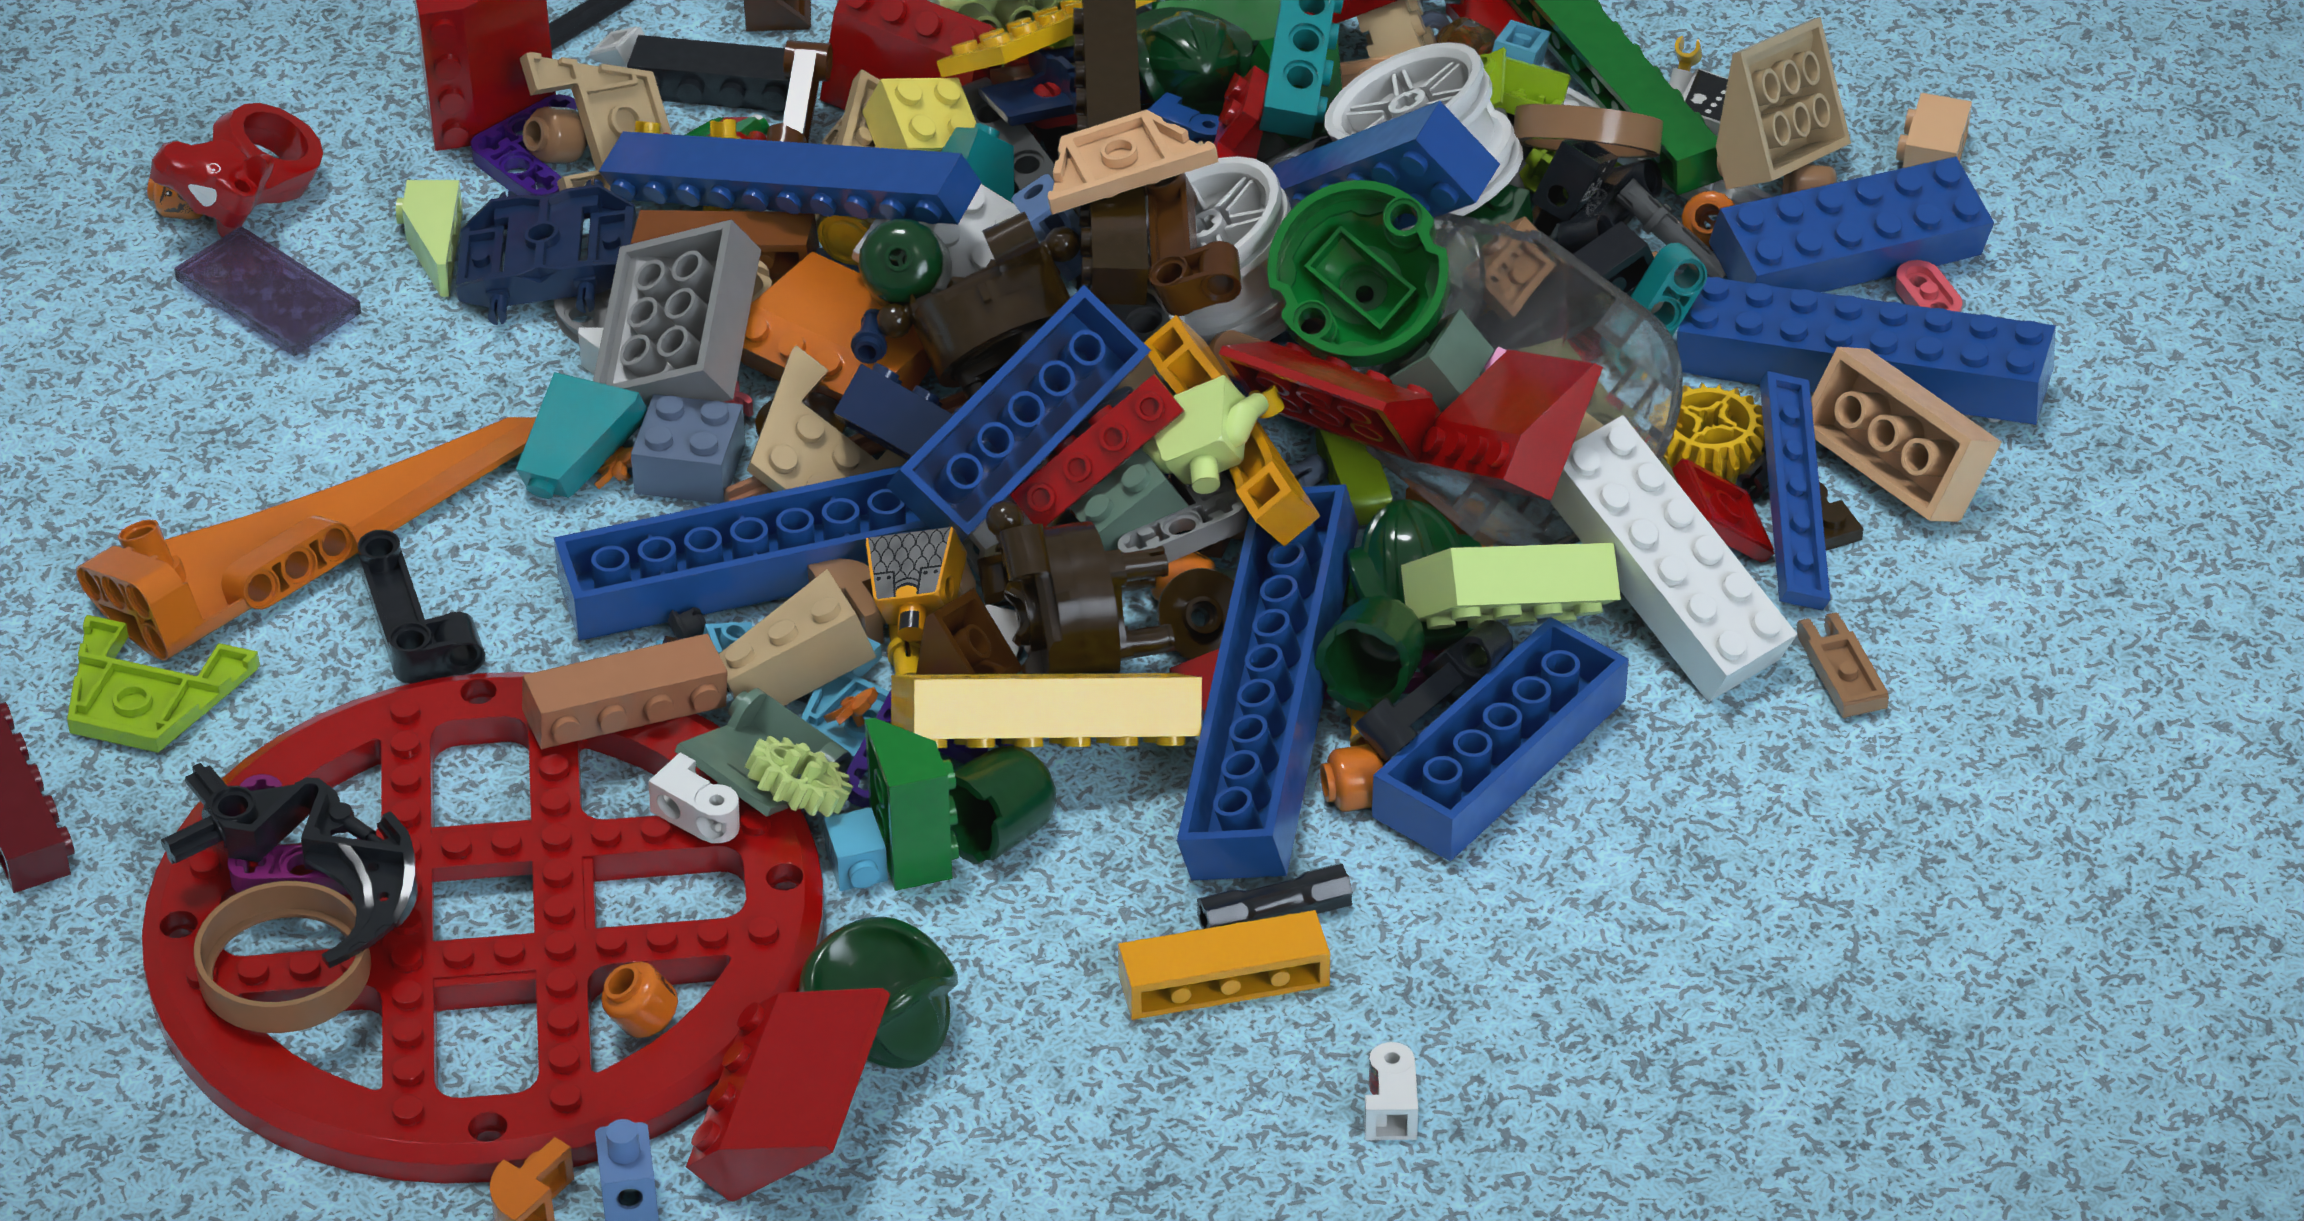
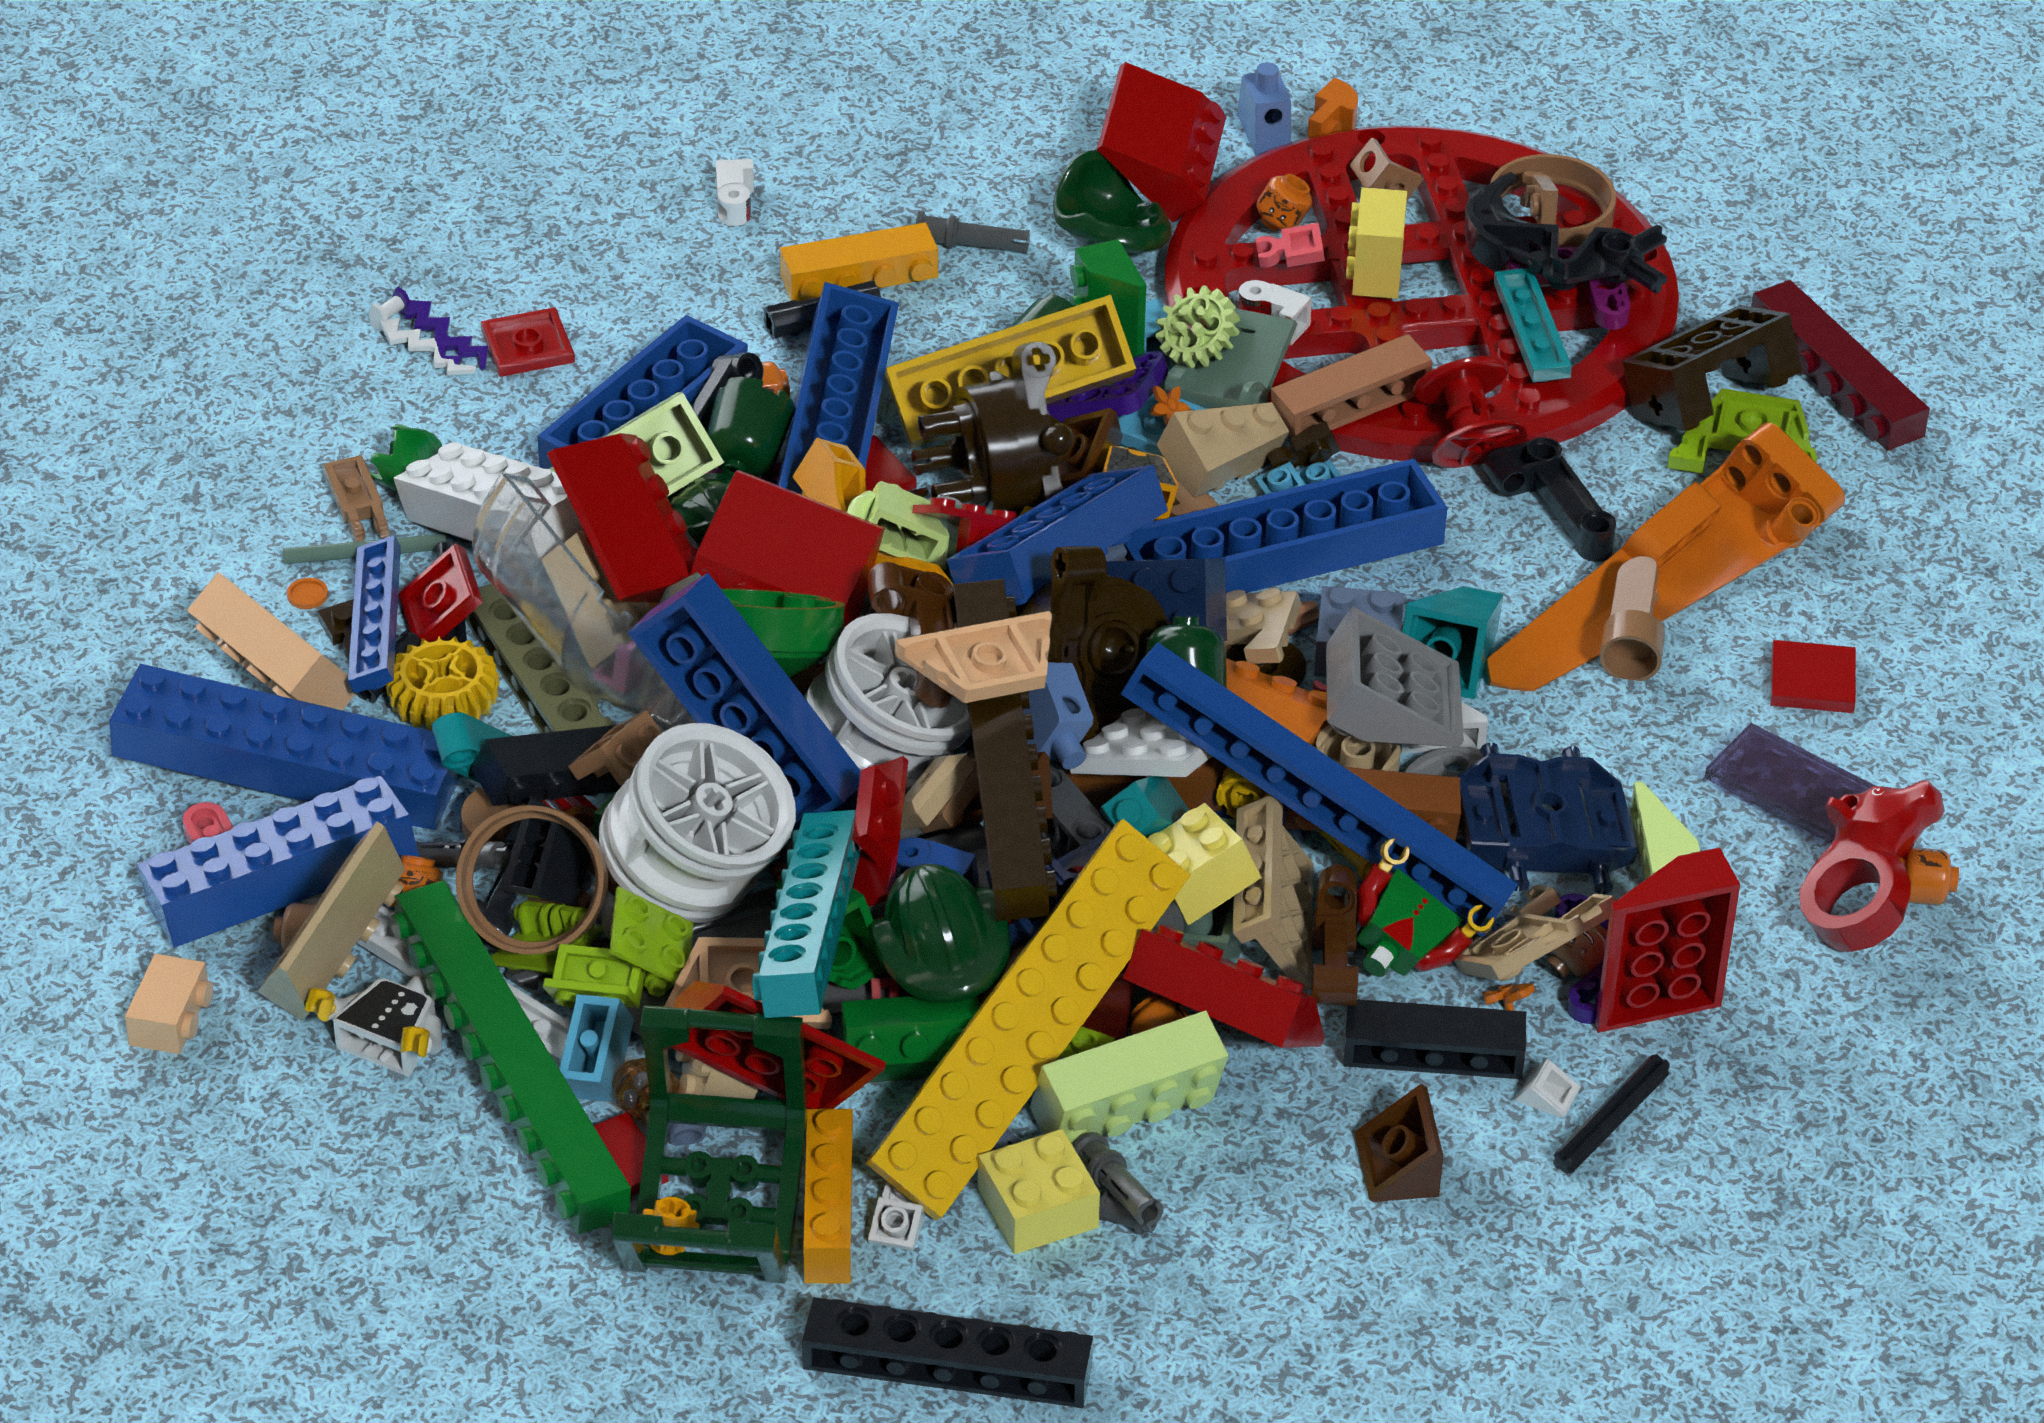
camera: 175 degrees right, 0 degrees up
(117, 736) = (1670, 378): none -> dark brown plate
(198, 415) = (1813, 676): none -> red tile
(299, 934) = (1540, 196): none -> medium nougat hinge
(371, 760) = (1532, 325): none -> teal plate
(382, 430) = (1632, 635): none -> medium nougat piece
(481, 1047) = (1384, 173): none -> medium nougat bracket
(485, 642) = (1463, 388): none -> red piece
(540, 850) = (1376, 242): none -> light yellow brick
(644, 901) = (1298, 246): none -> coral plate
(1097, 1016) = (953, 232): none -> dark grey pin
(1657, 884) = (527, 342): none -> red tile
(1768, 884) = (441, 342): none -> piece
(1788, 692) = (407, 447): none -> green hair
(1852, 610) = (349, 549): none -> sand green piece
(1880, 566) = (307, 593): none -> orange piece

